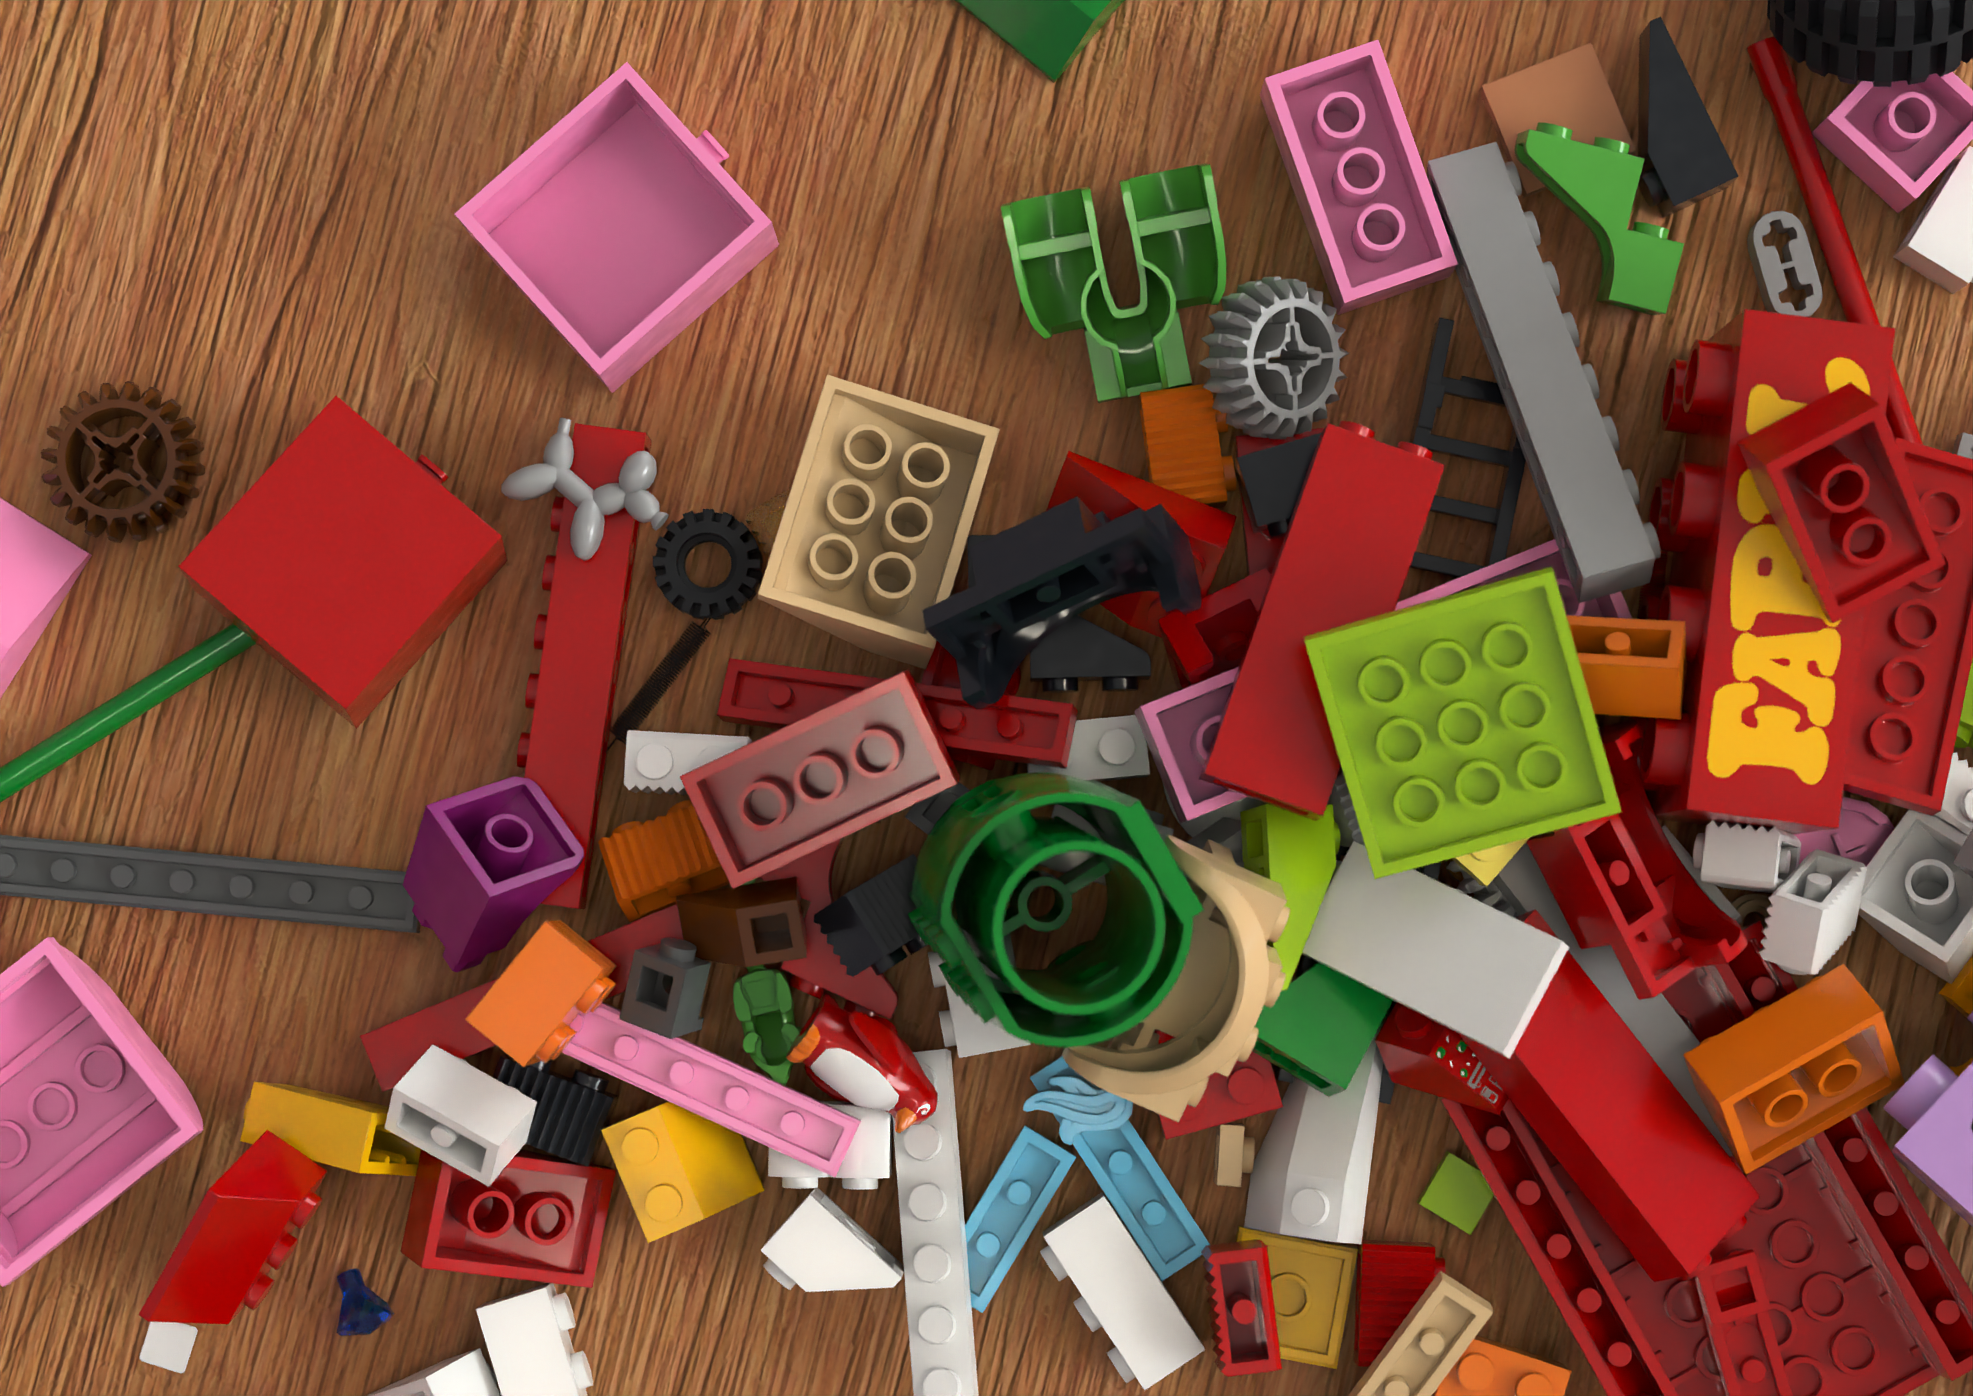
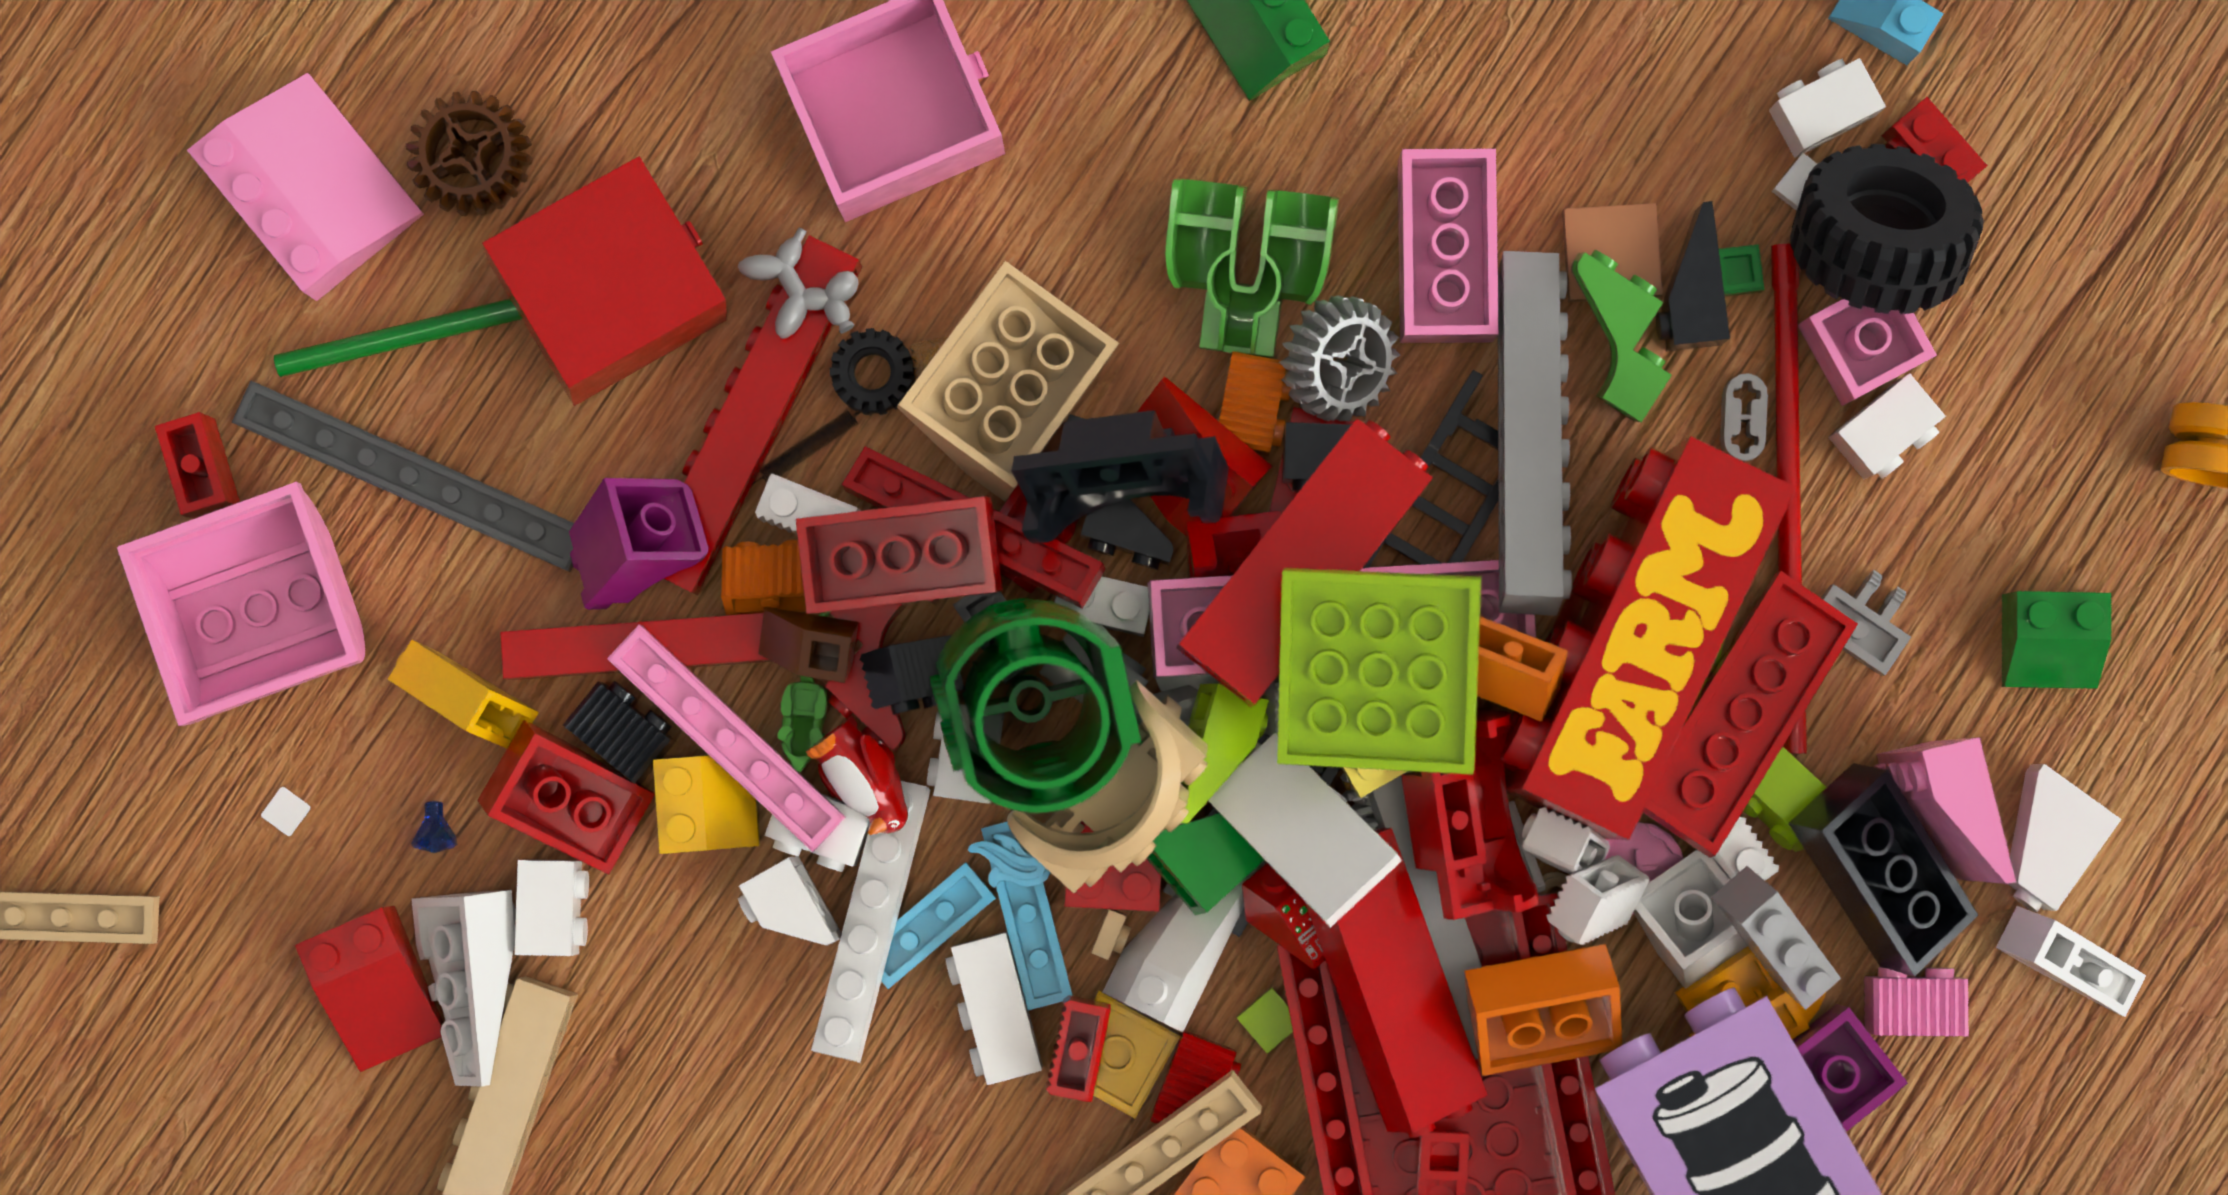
camera: 20 degrees right, 0 degrees up
(238, 1236) = (361, 747): red slope -> none
(460, 1115) = (553, 713): white brick -> none
(543, 993) = (643, 644): orange brick -> none
(666, 988) = (735, 672): dark grey brick -> none
(1722, 88) = (1741, 270): none -> green tile
(1843, 500) = (1712, 600): red slope -> none

